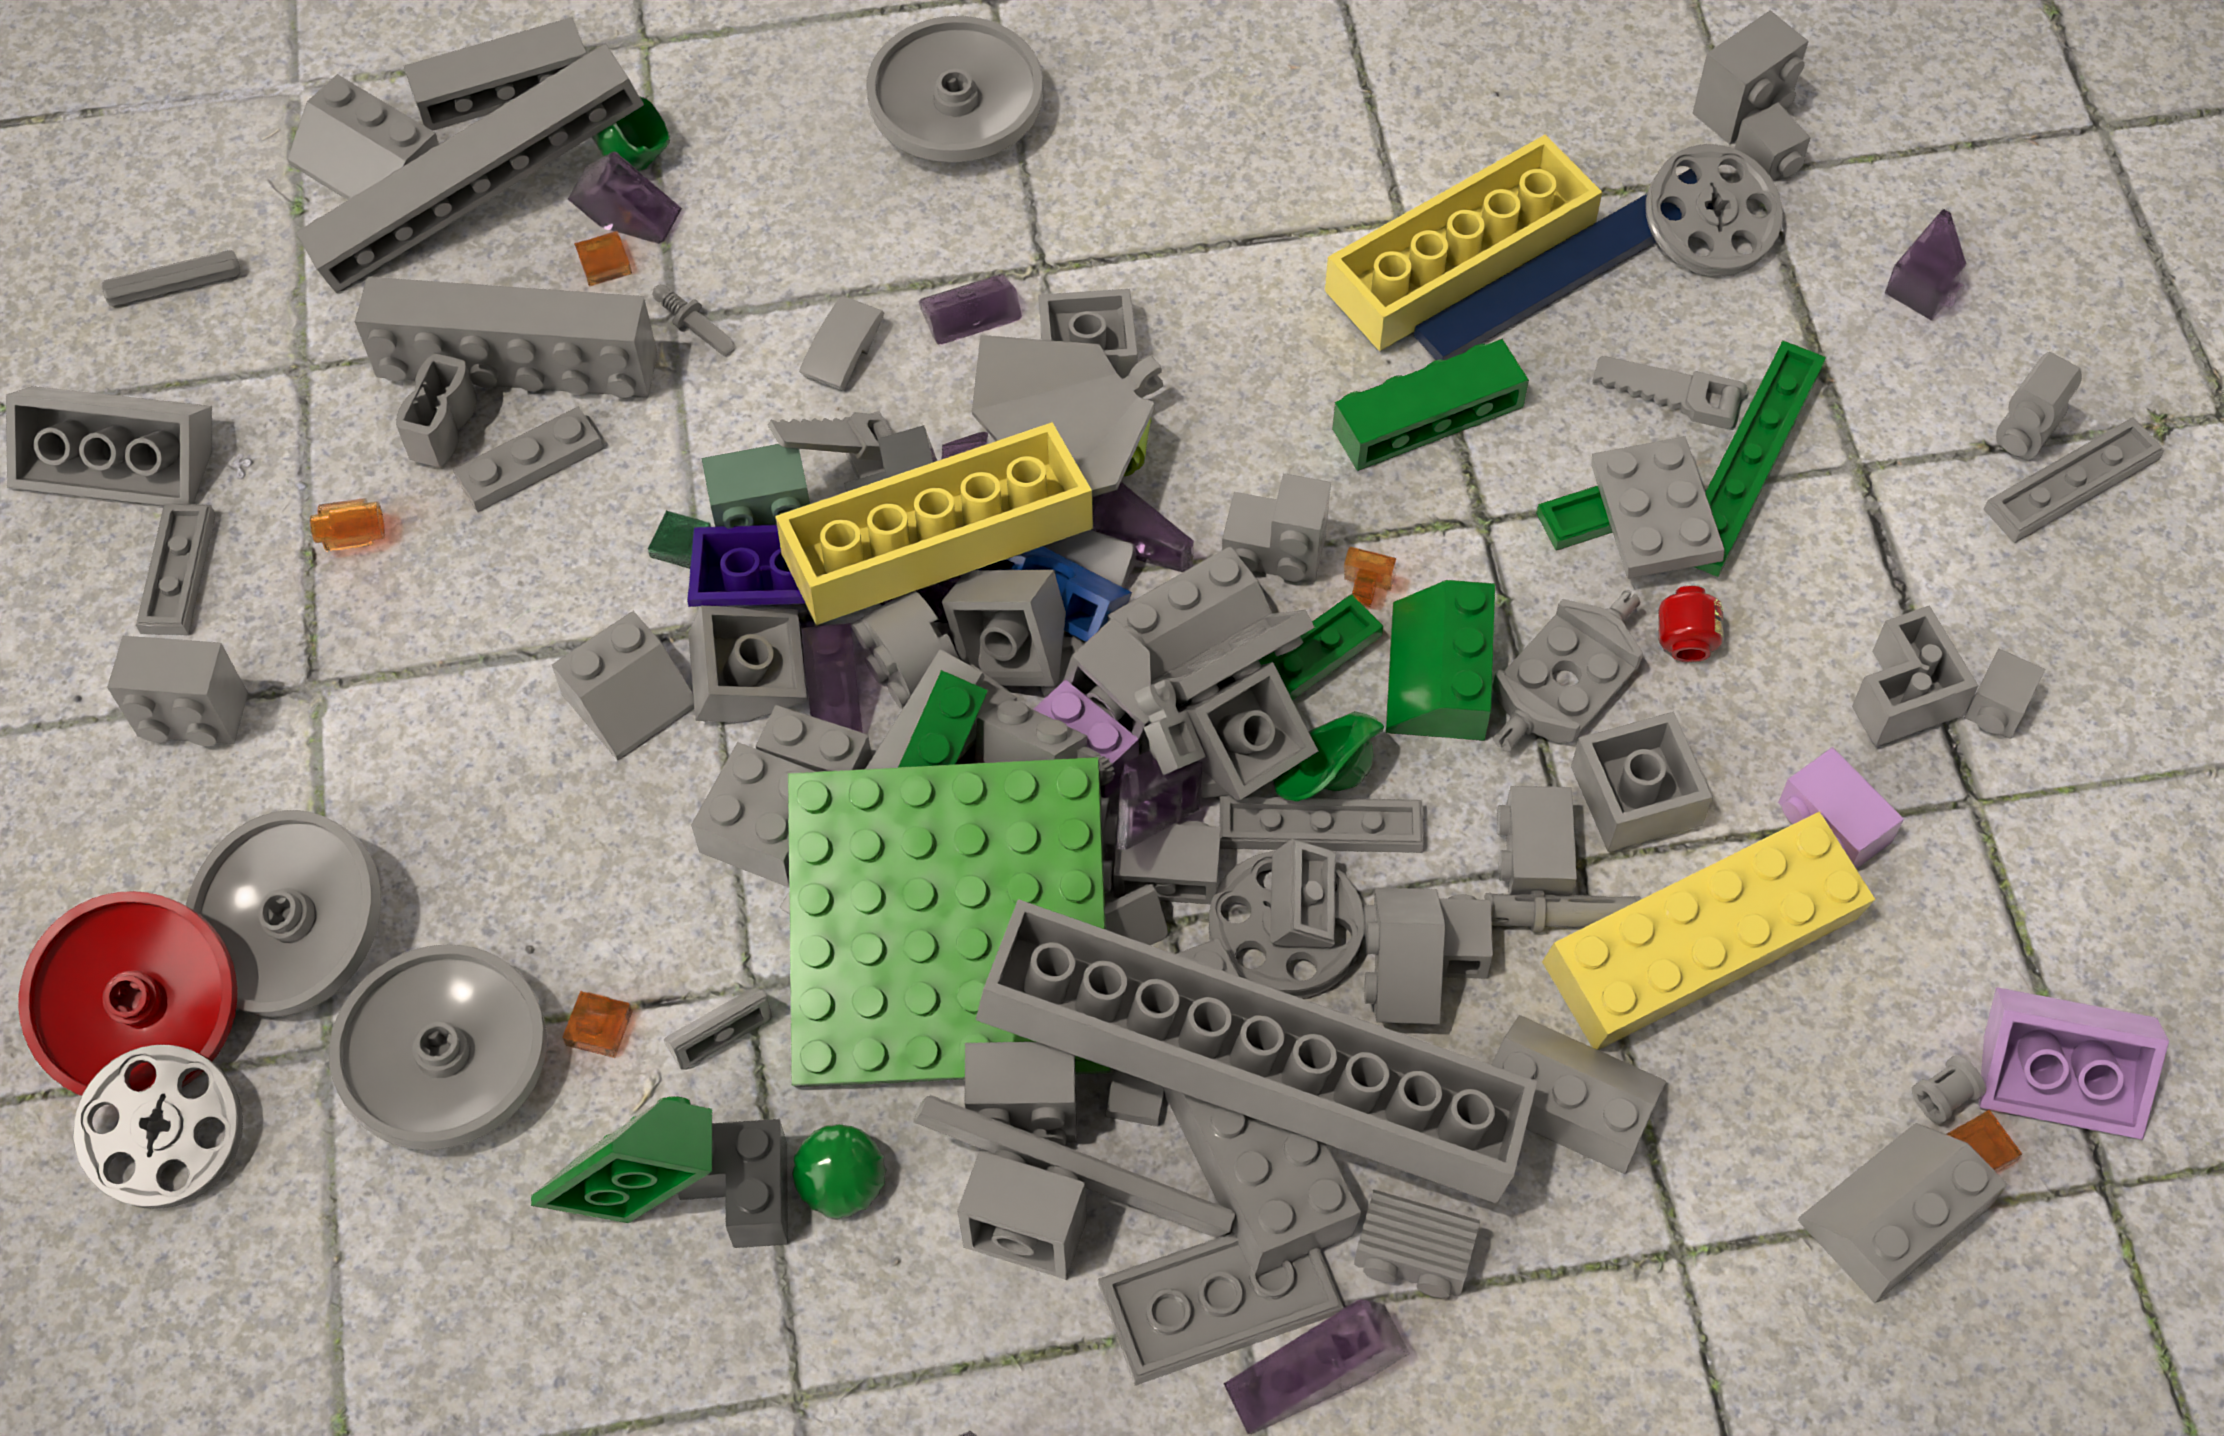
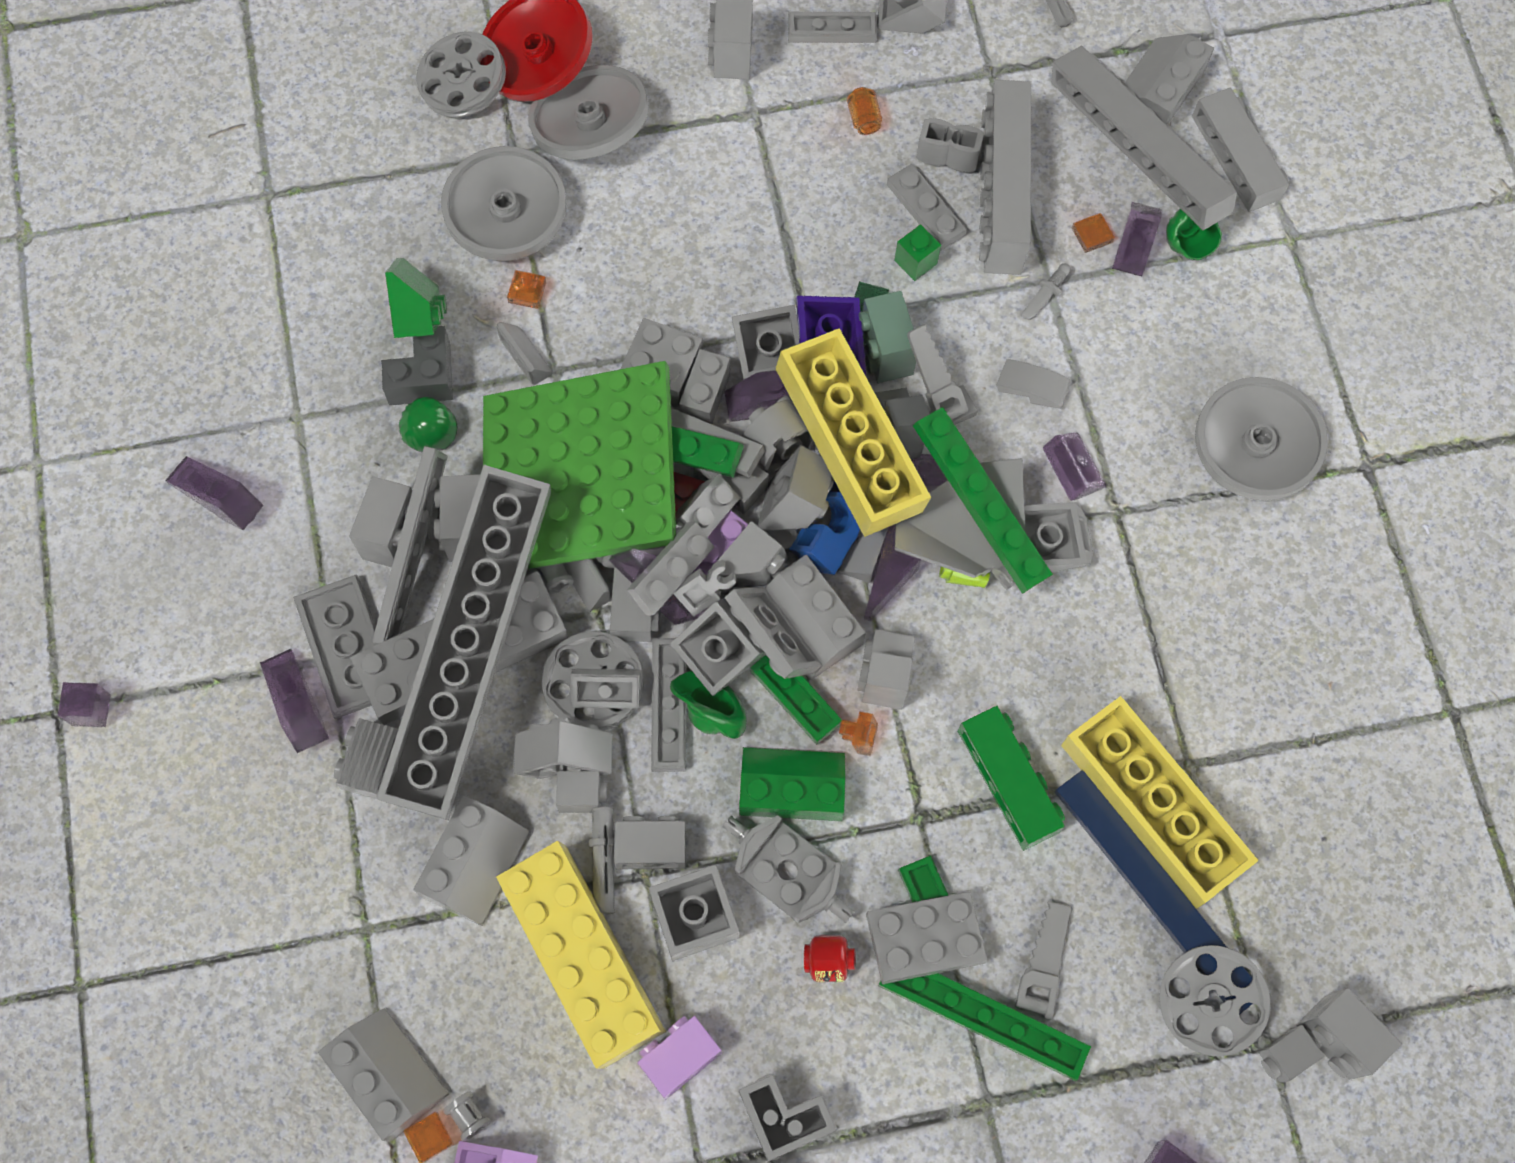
camera: 85 degrees right, 10 degrees up
(613, 465) = (917, 252): none -> green brick
(624, 685) = (753, 275): light grey slope -> none
(1043, 380) = (982, 500): none -> green plate
(1143, 764) = (670, 568): none -> light grey plate

